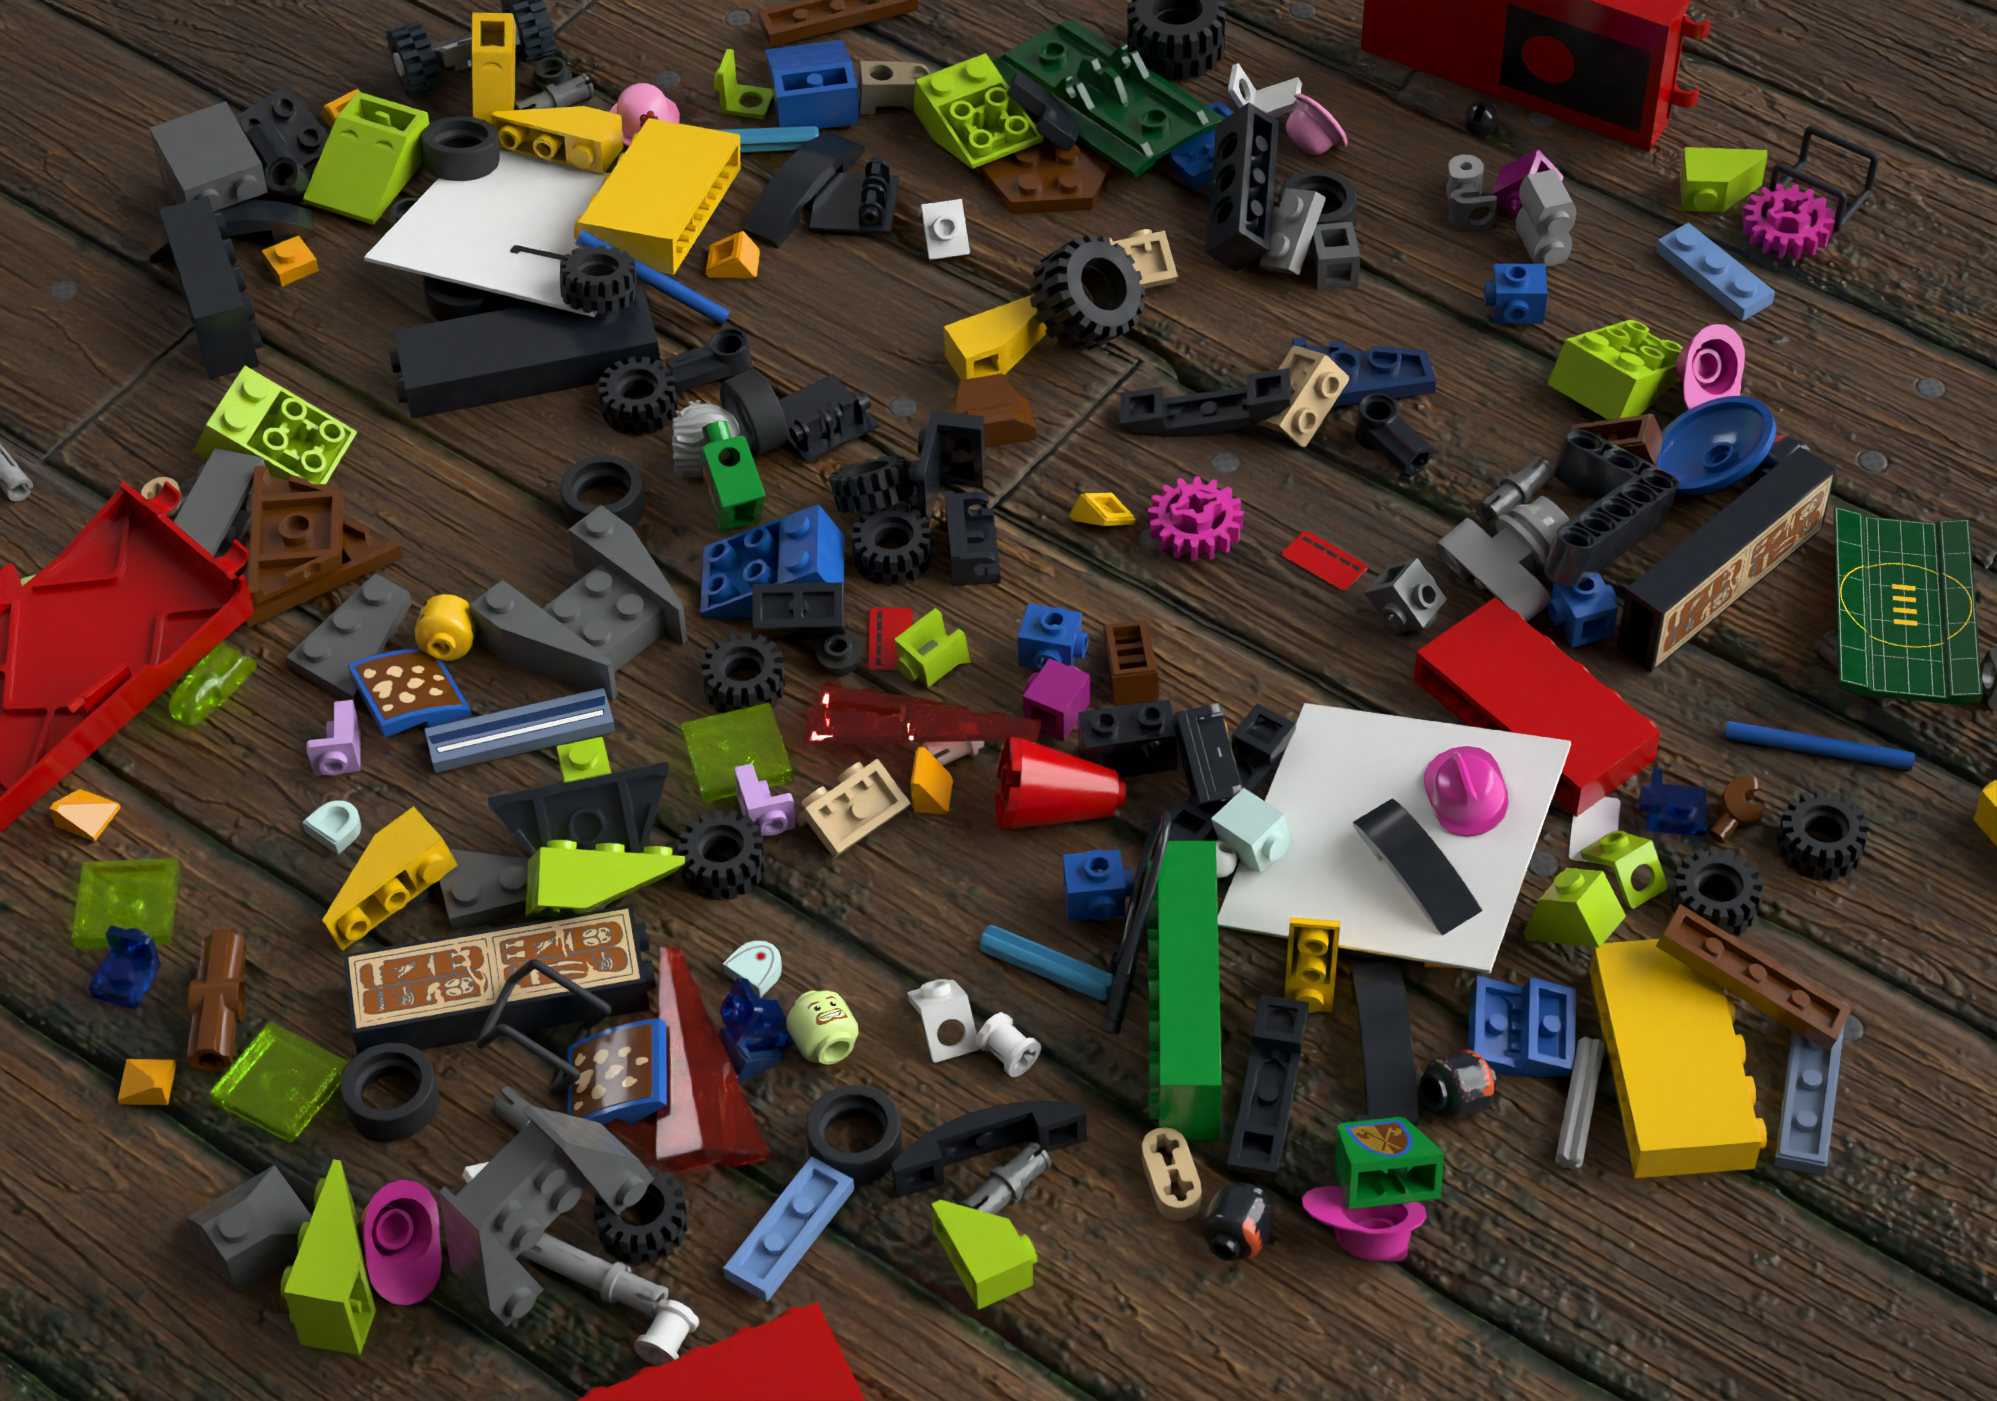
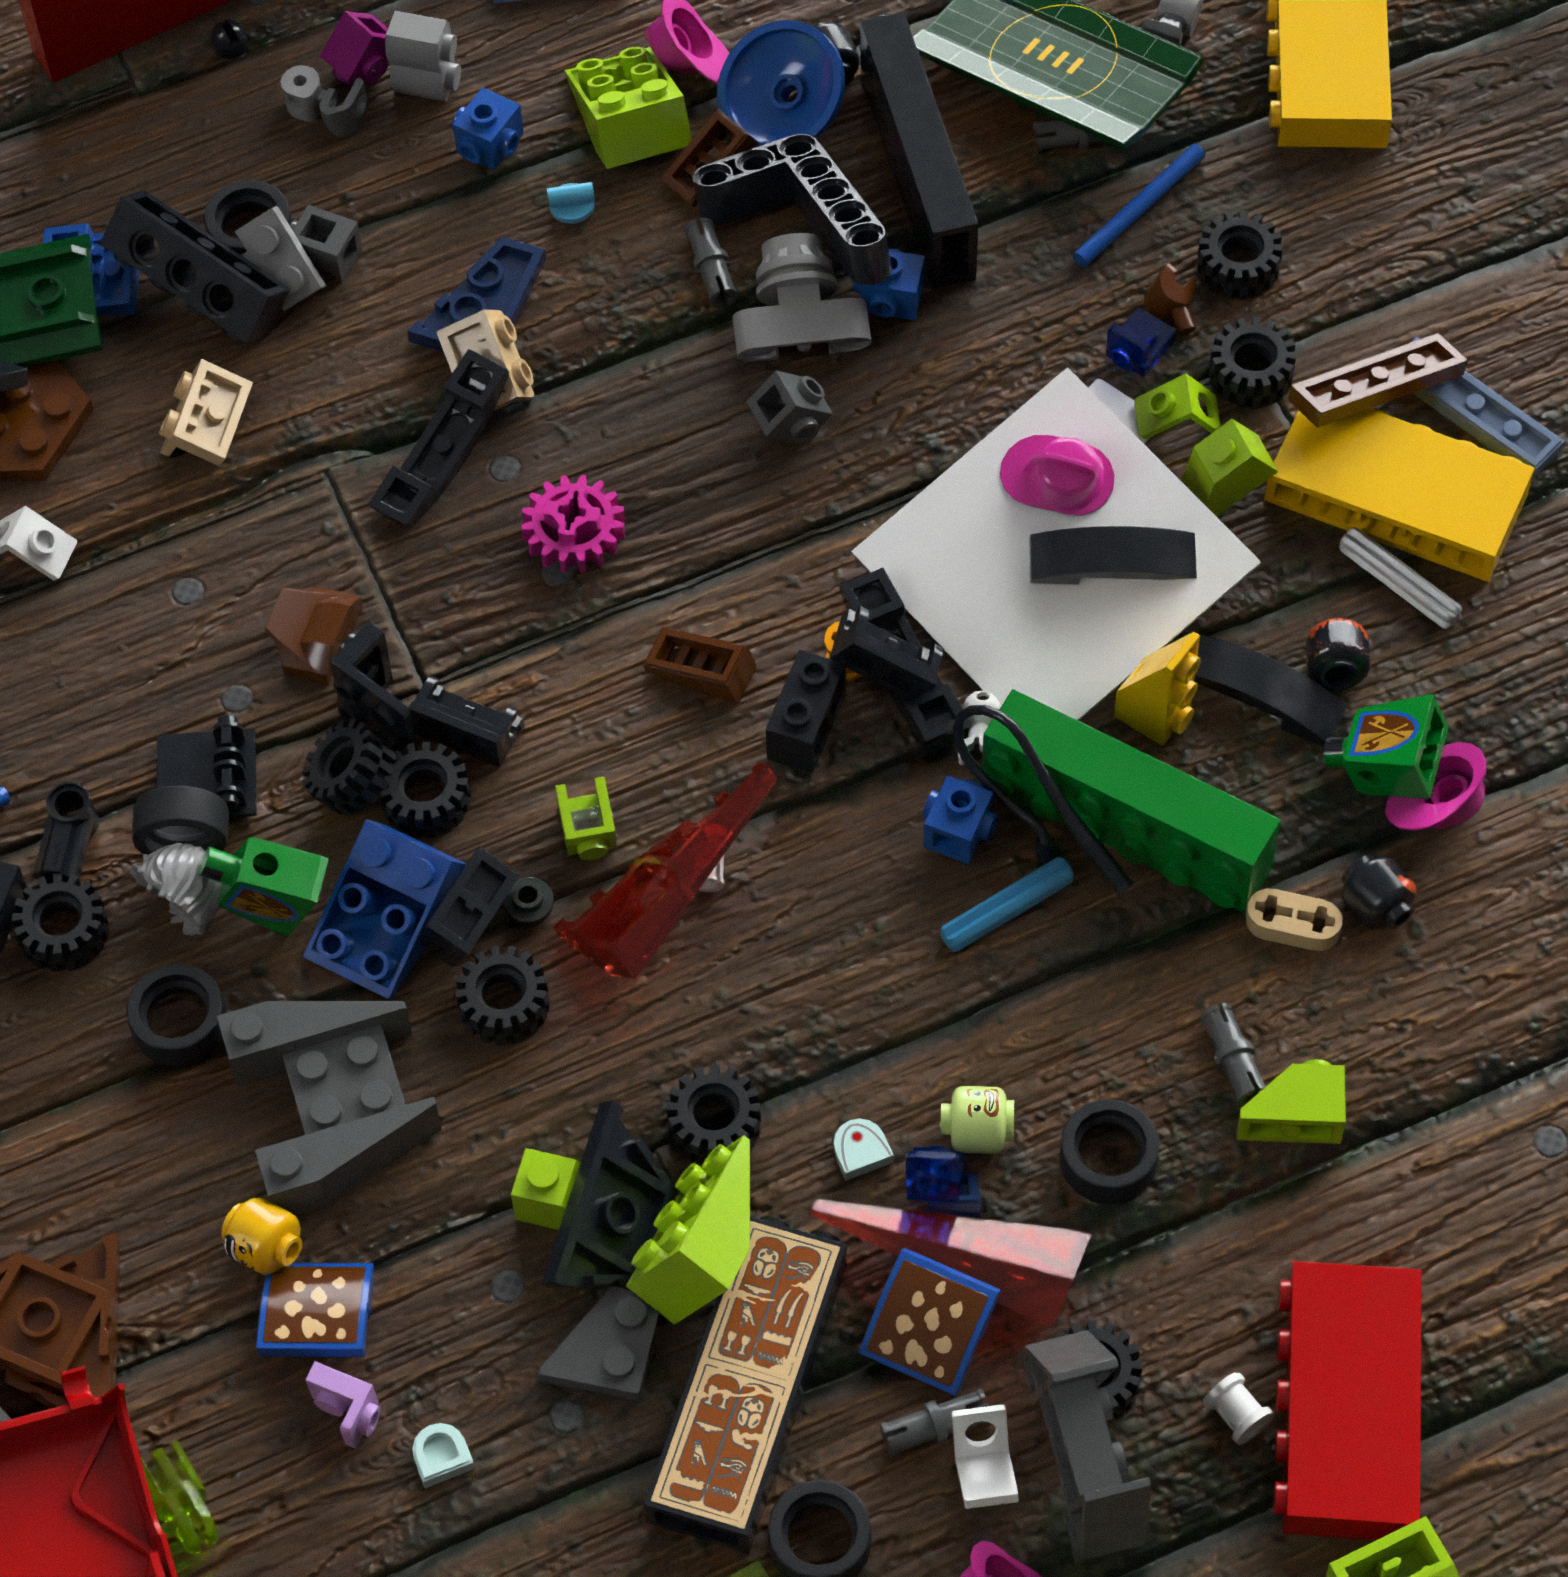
camera: 60 degrees left, 10 degrees up
(351, 634) = (202, 1336): dark grey wing -> none
(390, 873) = (553, 1404): yellow slope -> none
(490, 1032) = (850, 1301): black piece -> none
(519, 730) = (431, 1230): sand blue tile -> none
(612, 1281) = (1161, 1424): light grey pin -> none
(735, 740) = (589, 1046): clear neon green tile -> none
(769, 813) = (670, 1057): lavender bracket -> none
(788, 1229) = (1180, 1254): medium blue plate -> none
(854, 807) = (729, 976): tan bracket -> none
(884, 627) = (529, 850): red sticker -> none
(930, 784) = (741, 902): light orange slope -> none
(937, 1003) = (1014, 1009): white bracket -> none
(983, 1131) = (1177, 1098): black slope -> none
(993, 339) = (224, 579): yellow slope -> none
(1008, 1044) = (1085, 978): white bush -> none
(1050, 634) = (646, 712): blue brick -> none
(1052, 787) = (821, 803): red cone -> none
(1056, 698) = (720, 743): magenta brick -> none
(1101, 510) = (503, 596): yellow slope -> none
(1108, 278) = (245, 461): black tyre -> none
(1253, 830) = (981, 662): light aqua brick -> none
(1269, 1086) = (1303, 835): black slope -> none
(1272, 100) = (75, 186): white bracket -> none
(1313, 127) = (150, 169): bright pink hat -> none
(1325, 560) = (681, 451): red sticker -> none
(1383, 430) = (567, 319): black piece -> none
(1499, 379) = (571, 202): none -> medium azure plate
(1514, 680) = (959, 376): red brick -> none
(1523, 1027) = (1299, 577): blue slope -> none

